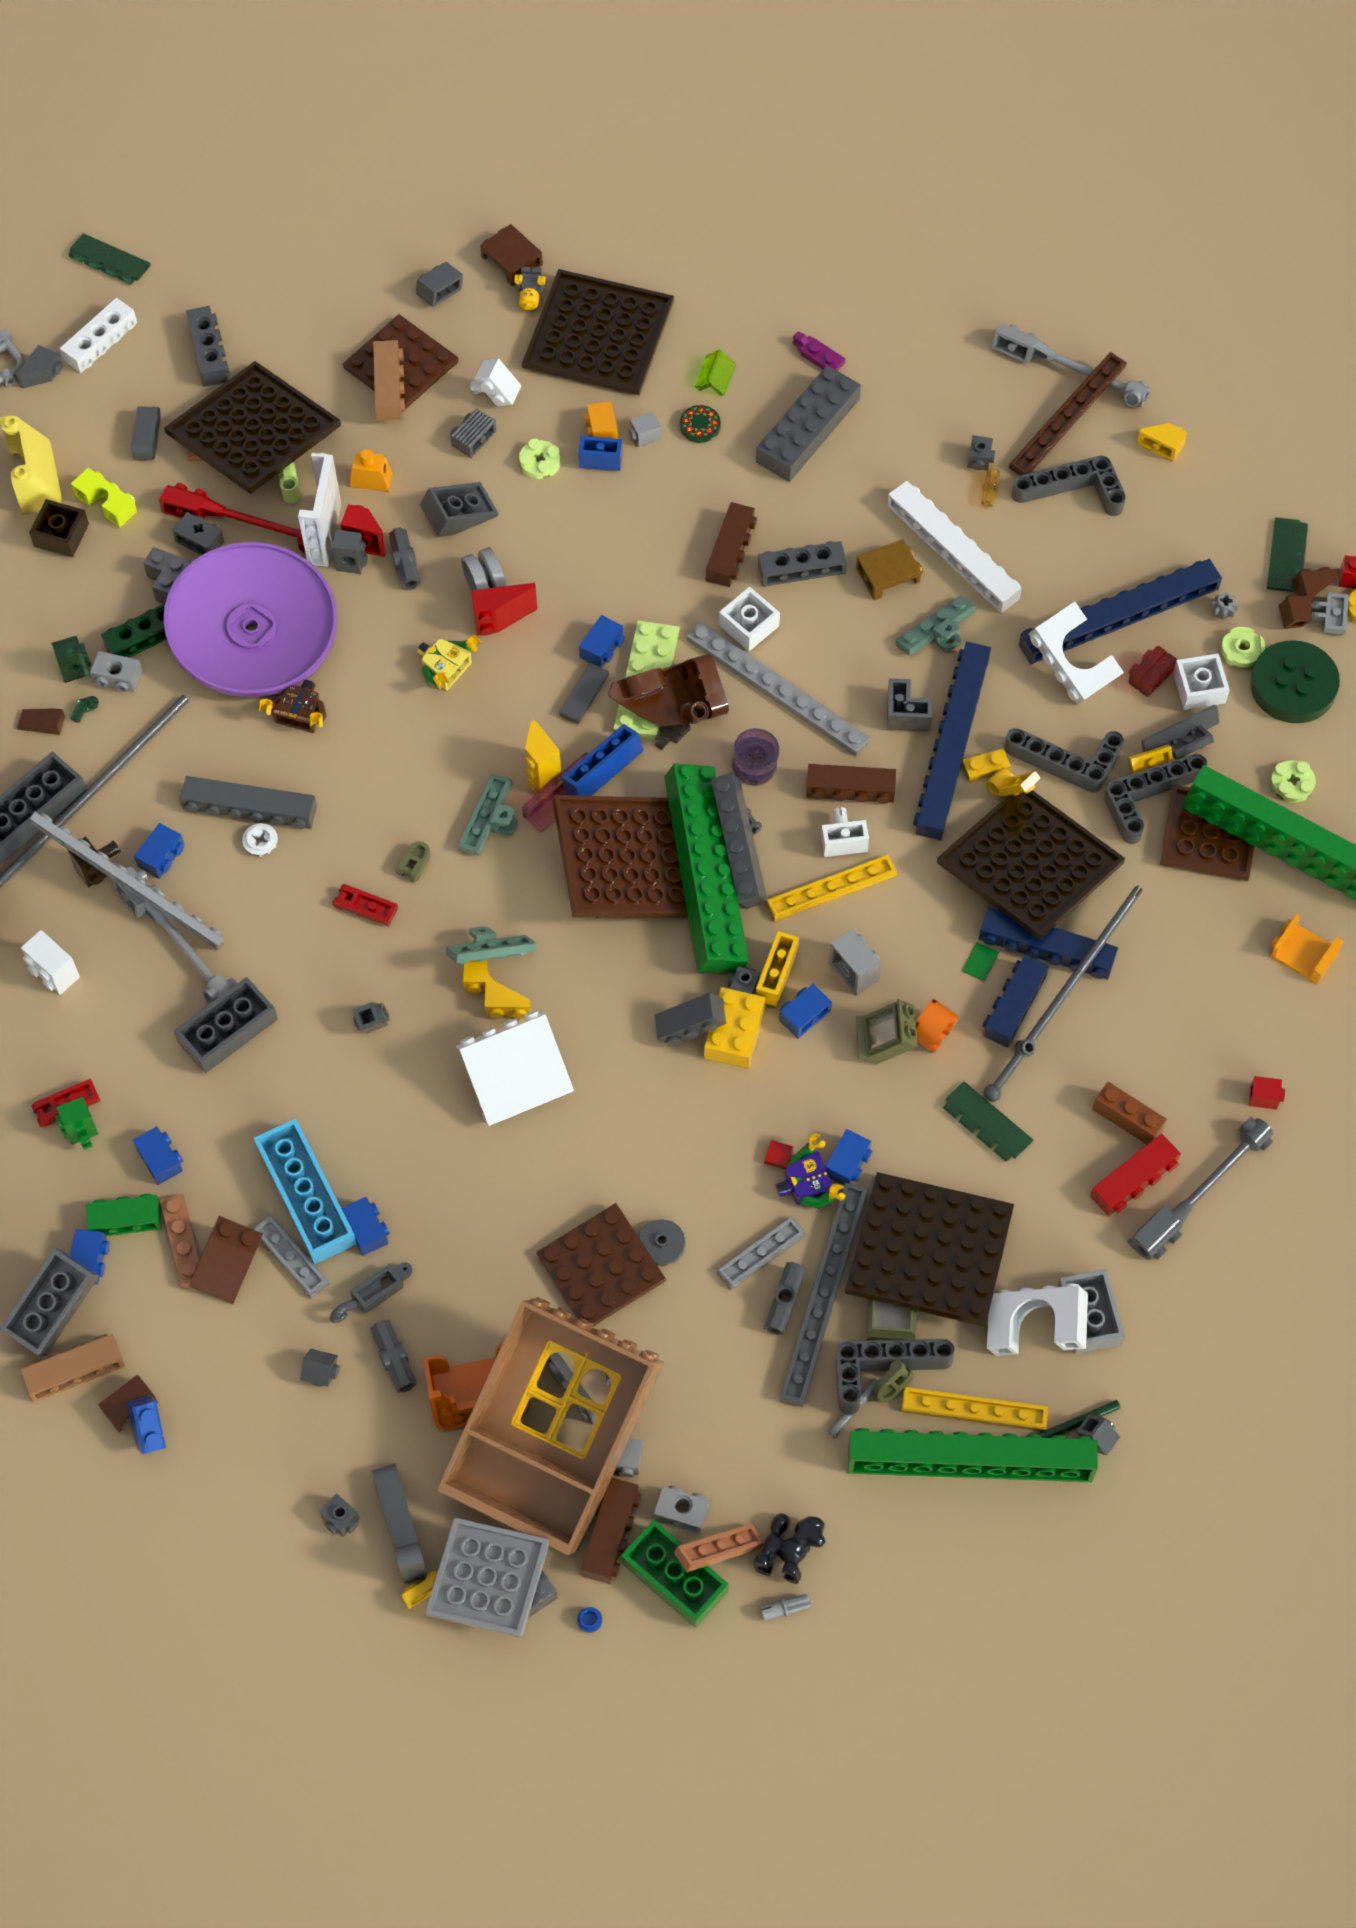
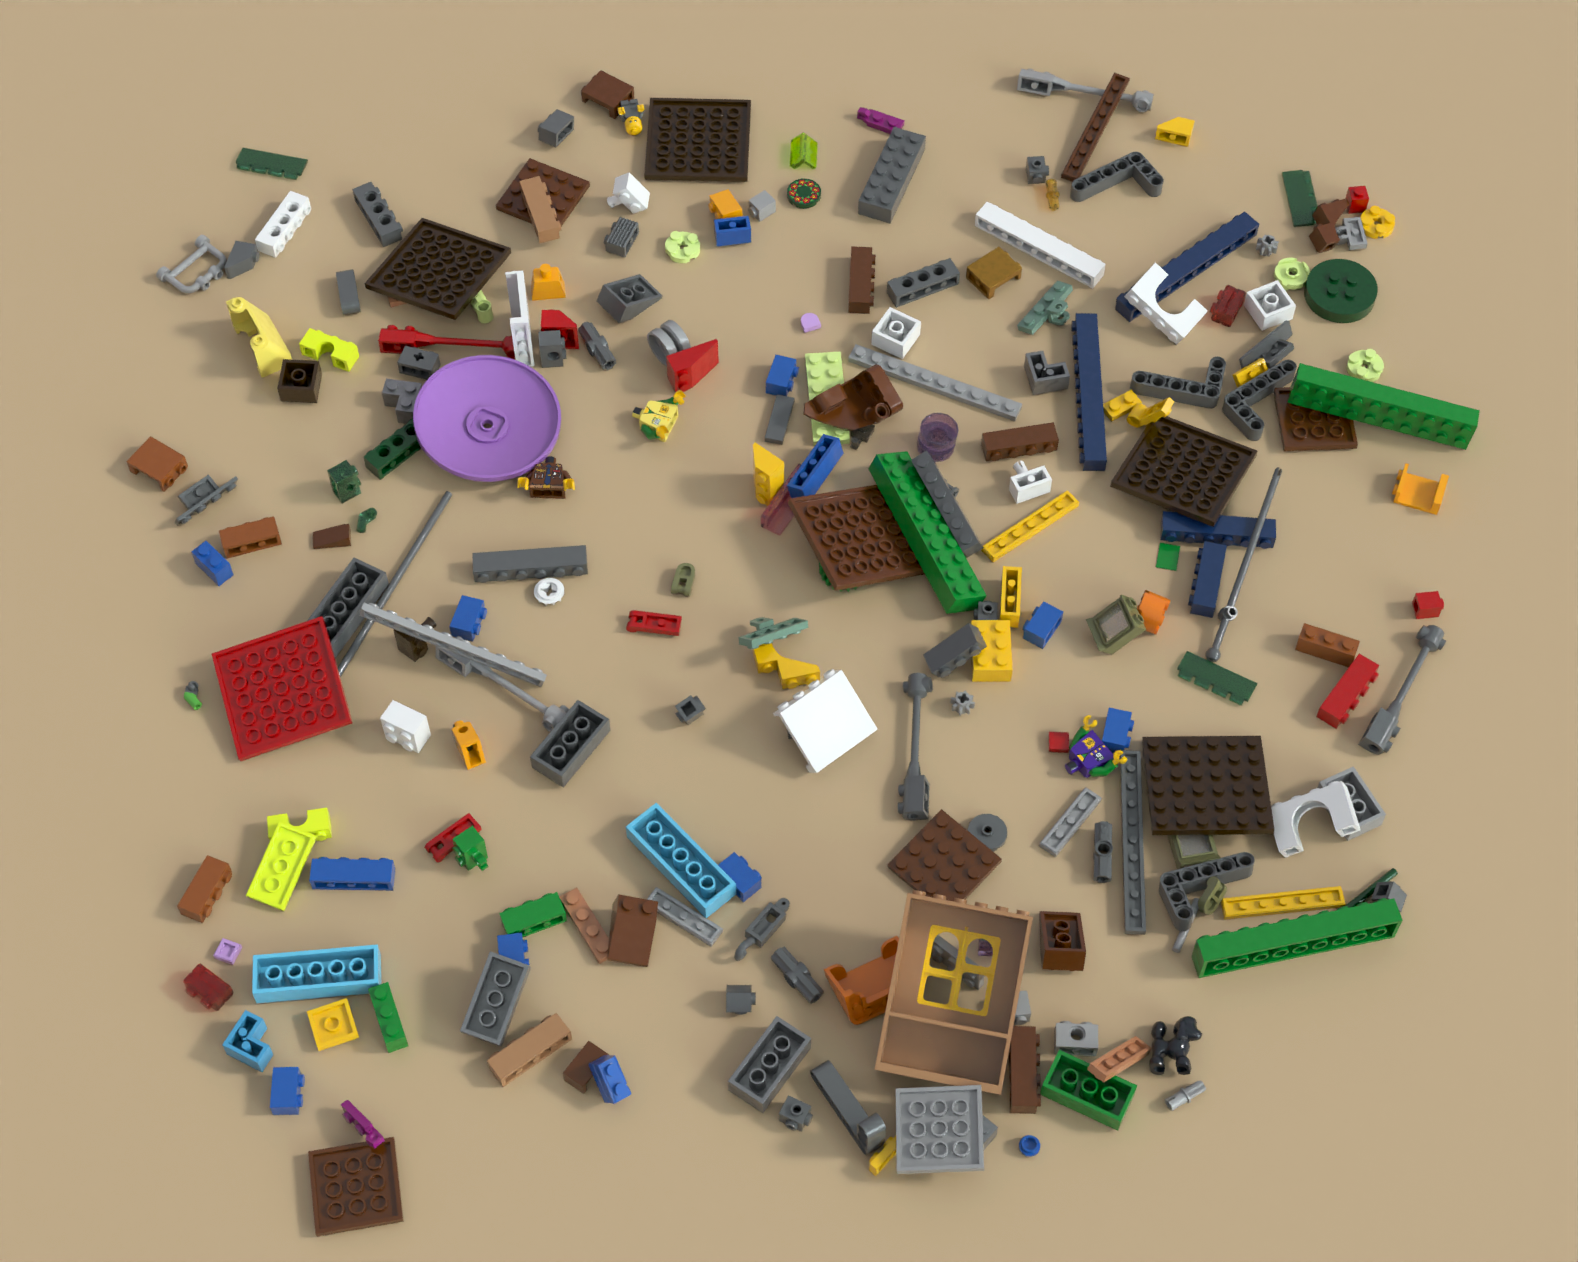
camera: 15 degrees left, 5 degrees down
(107, 664) = (391, 479): light grey brick -> none
(112, 990) = (466, 736): none -> light orange torso
(158, 1155) = (546, 861): blue brick -> none
(328, 1452) = (769, 1064): none -> flat silver brick
(489, 815) = (734, 530): sand green plate -> none
(597, 1170) = (915, 786): none -> dark grey bar
(656, 583) = (810, 322): none -> lavender tile
(680, 1077) = (962, 703): none -> light grey gear
(703, 1391) = (1062, 941): none -> reddish brown slope
(854, 961) = (1071, 577): light grey brick -> none

